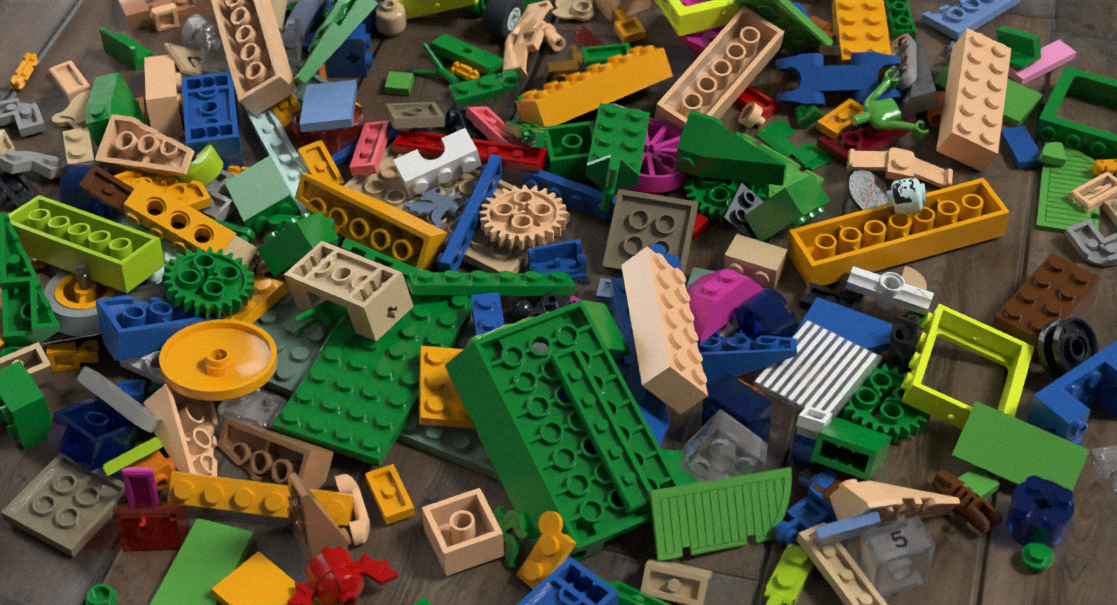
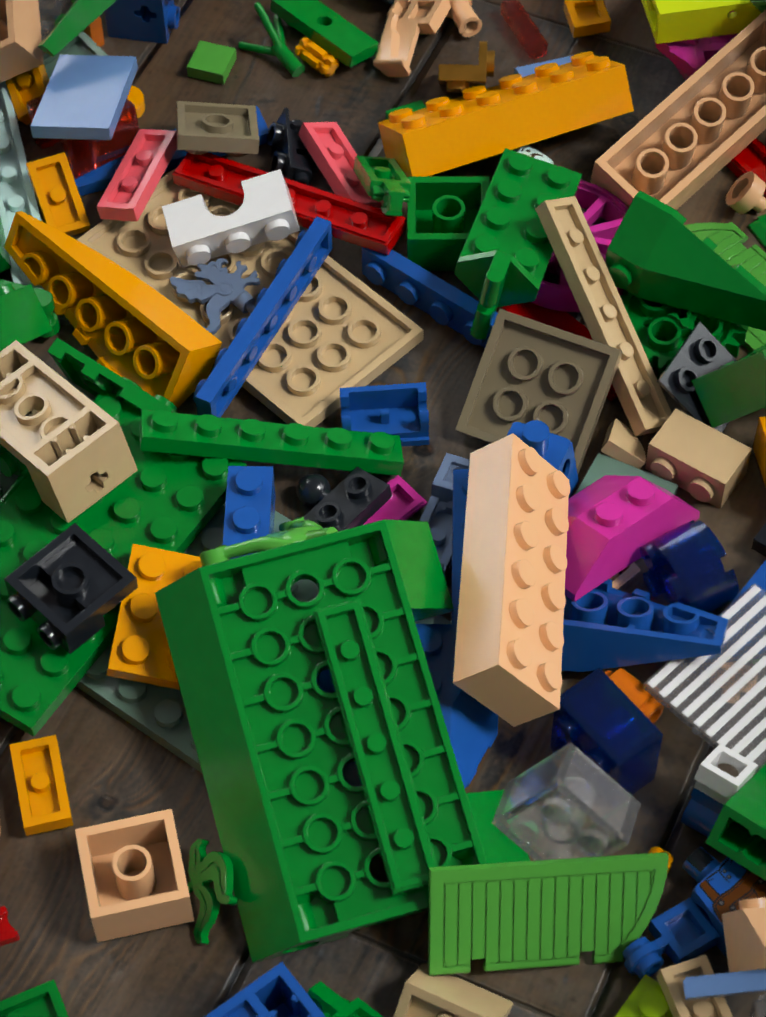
camera: 10 degrees right, 10 degrees up
(387, 375) = (68, 589): none -> black plate
(483, 88) = (338, 87): green hinge -> none
(523, 217) = (345, 331): light nougat gear -> none
(548, 552) = (255, 939): light orange hinge -> none
(600, 54) = (523, 55): green tile -> none
(681, 185) = (604, 312): none -> tan plate
(707, 260) = (623, 445): none -> tan tile

